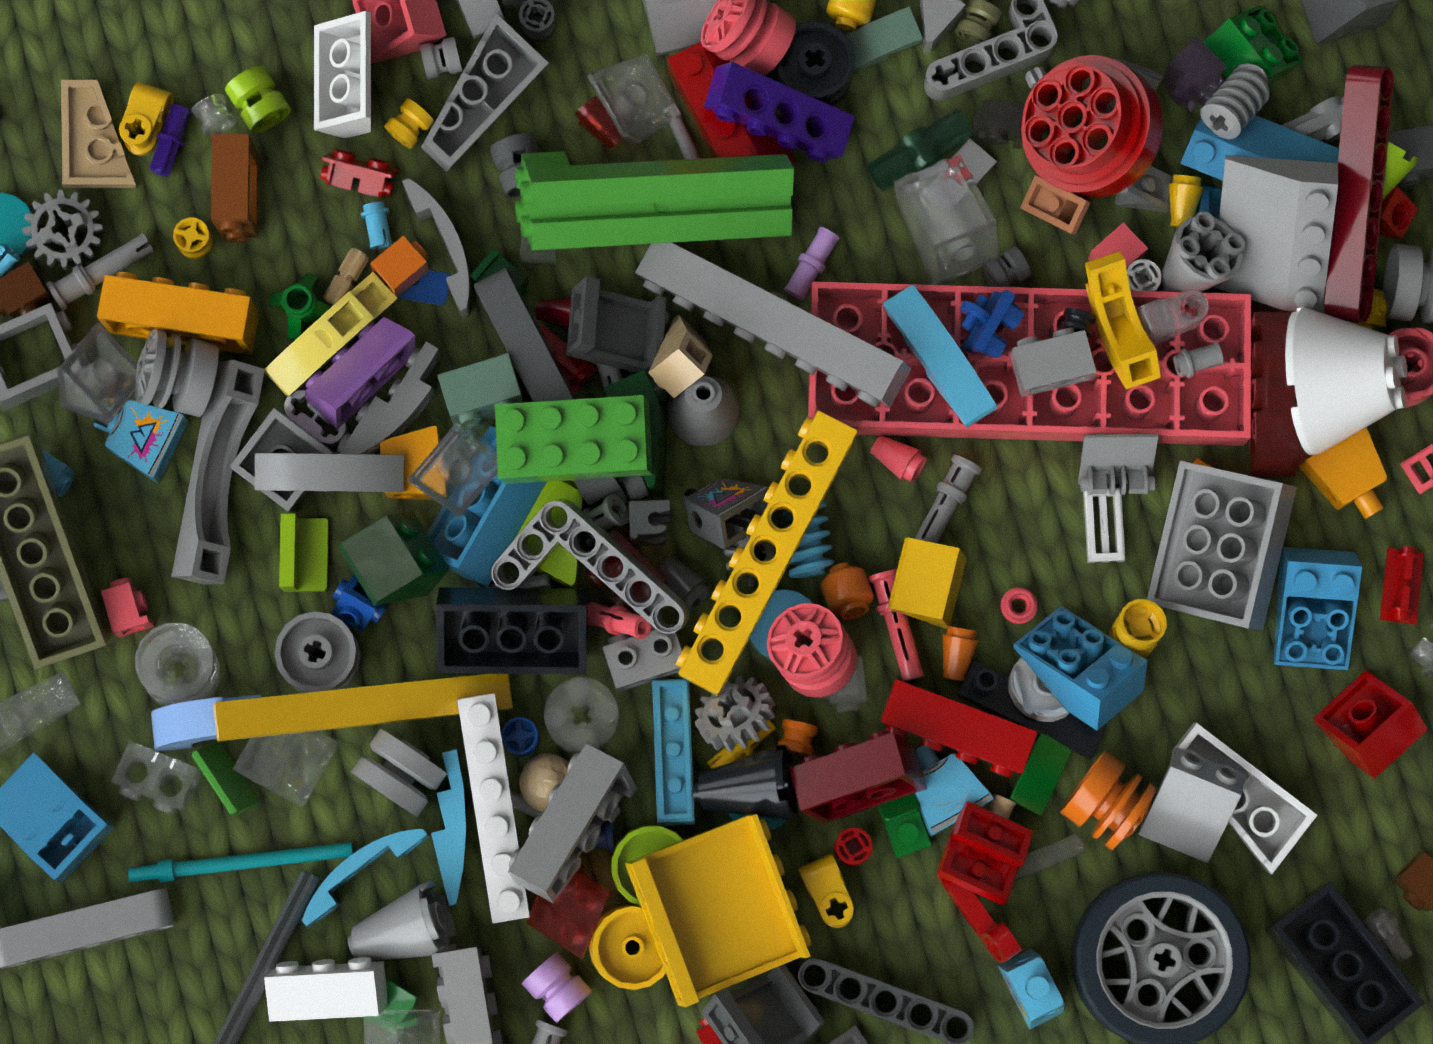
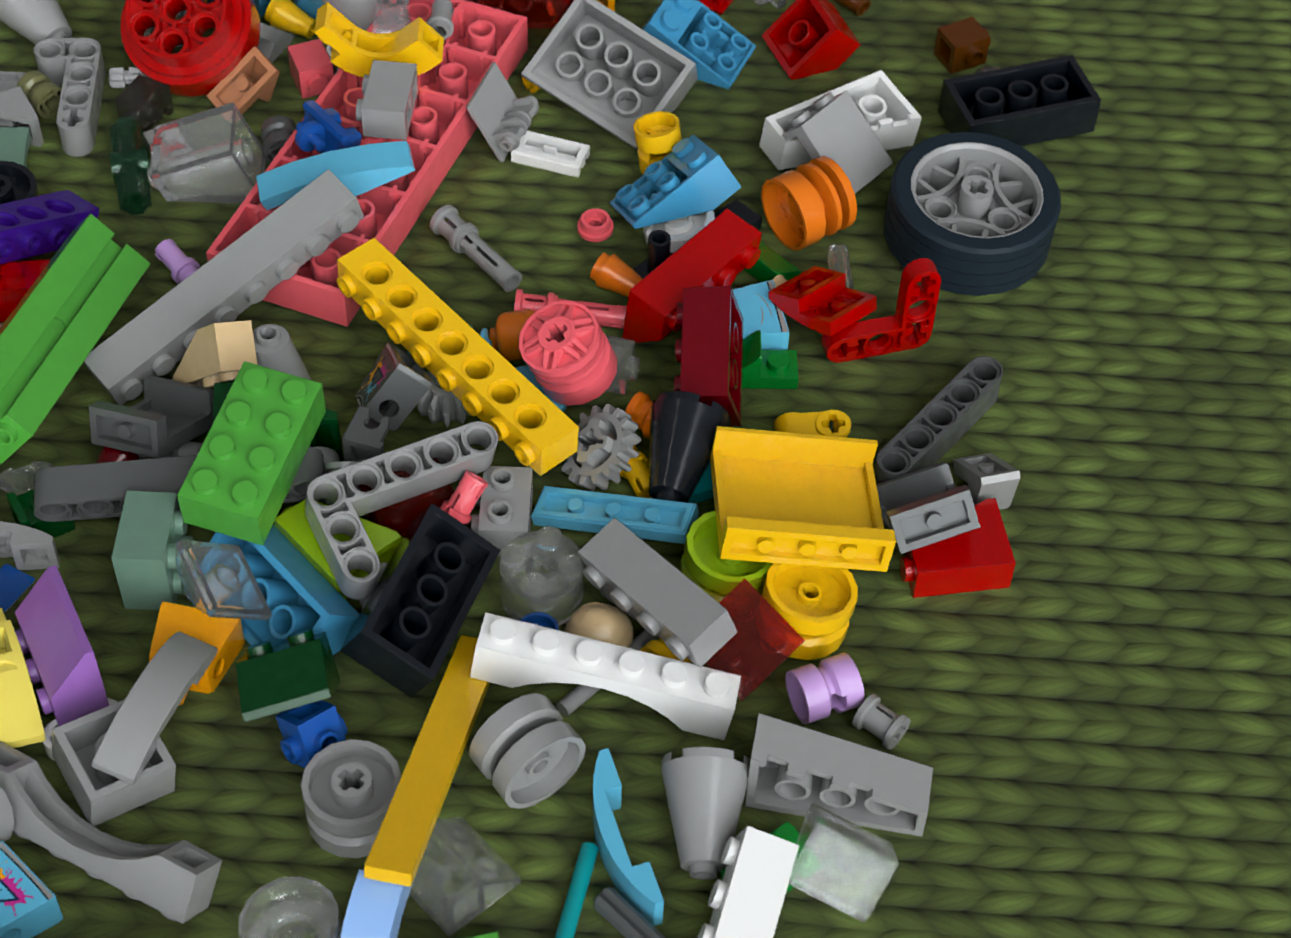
camera: 70 degrees left, 30 degrees down
(303, 554) = (228, 790): lime panel -> none
(407, 401) = (114, 633): light grey slope -> none
(451, 841) = (630, 739): medium azure slope -> none
(851, 852) = (772, 399): red wheel -> none
(899, 458) = (419, 258): coral cone -> none
(927, 581) = (544, 263): yellow slope -> none
(1032, 988) = (967, 309): medium azure torso -> none
(1078, 320) = (354, 78): black bush -> none

